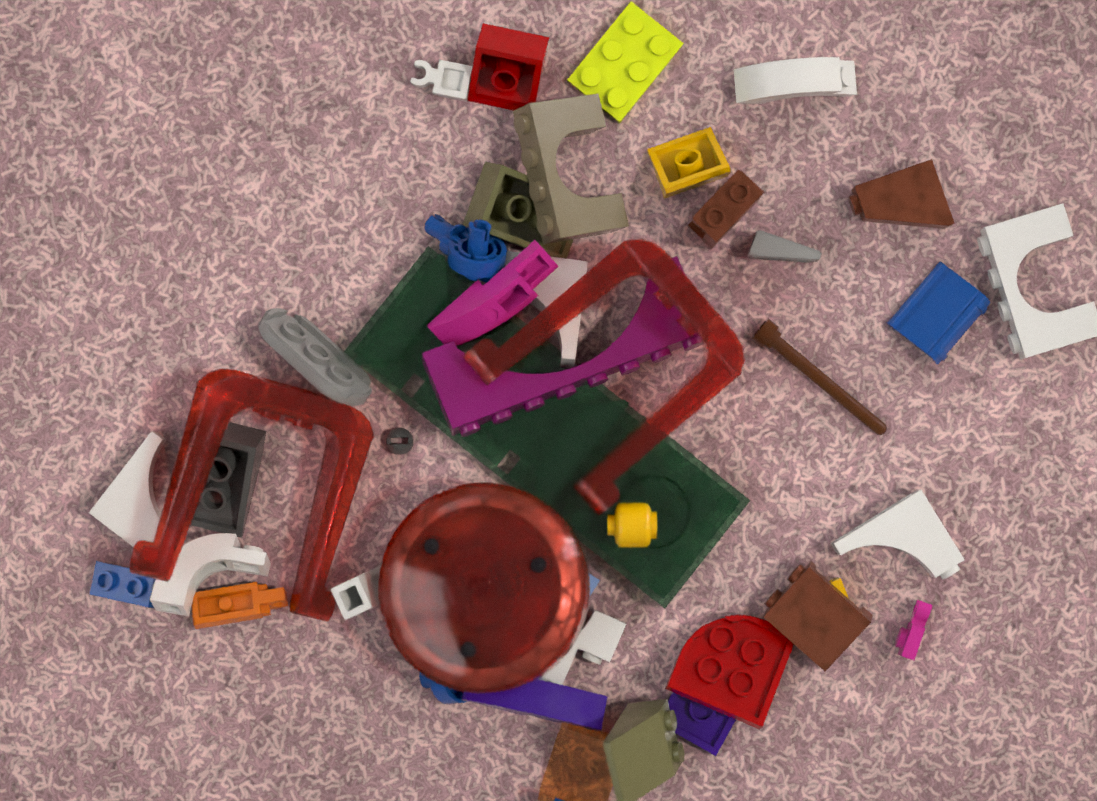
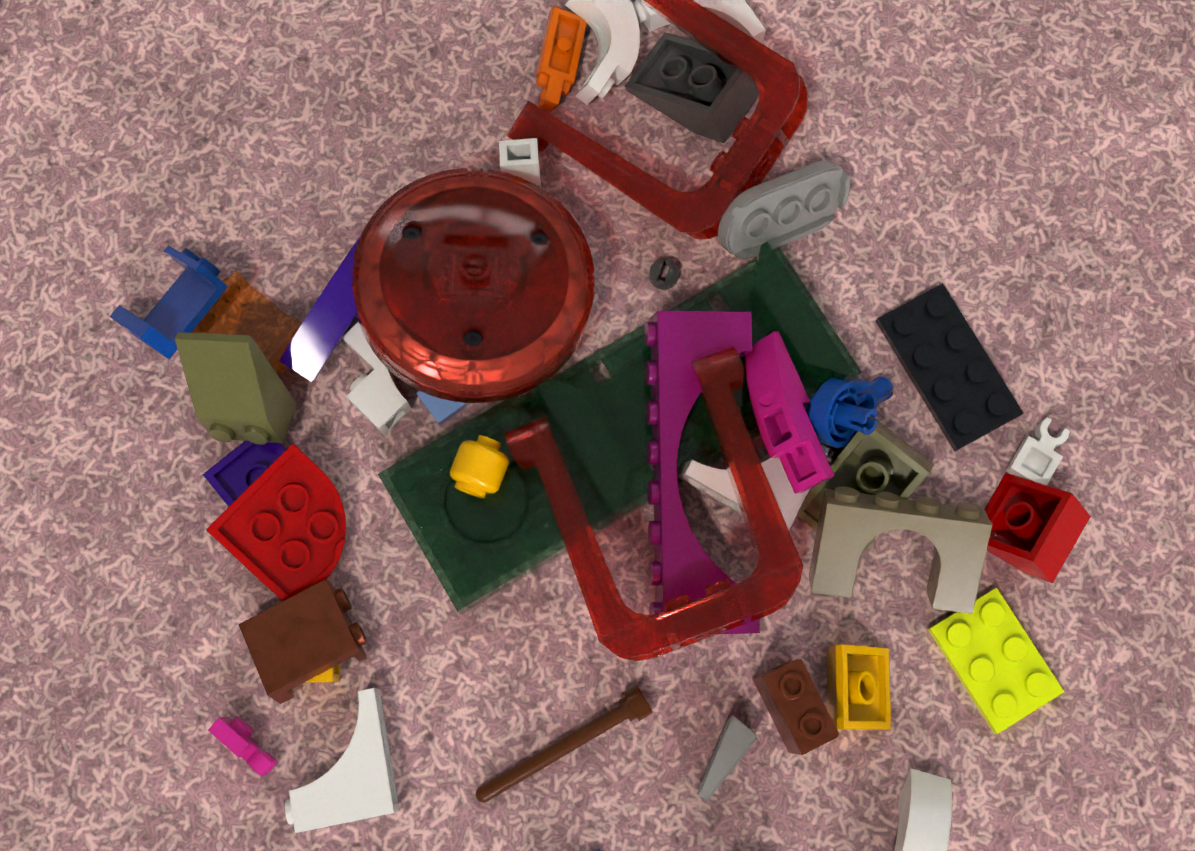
camera: 110 degrees right, 10 degrees down
(394, 175) = (949, 367): none -> black plate

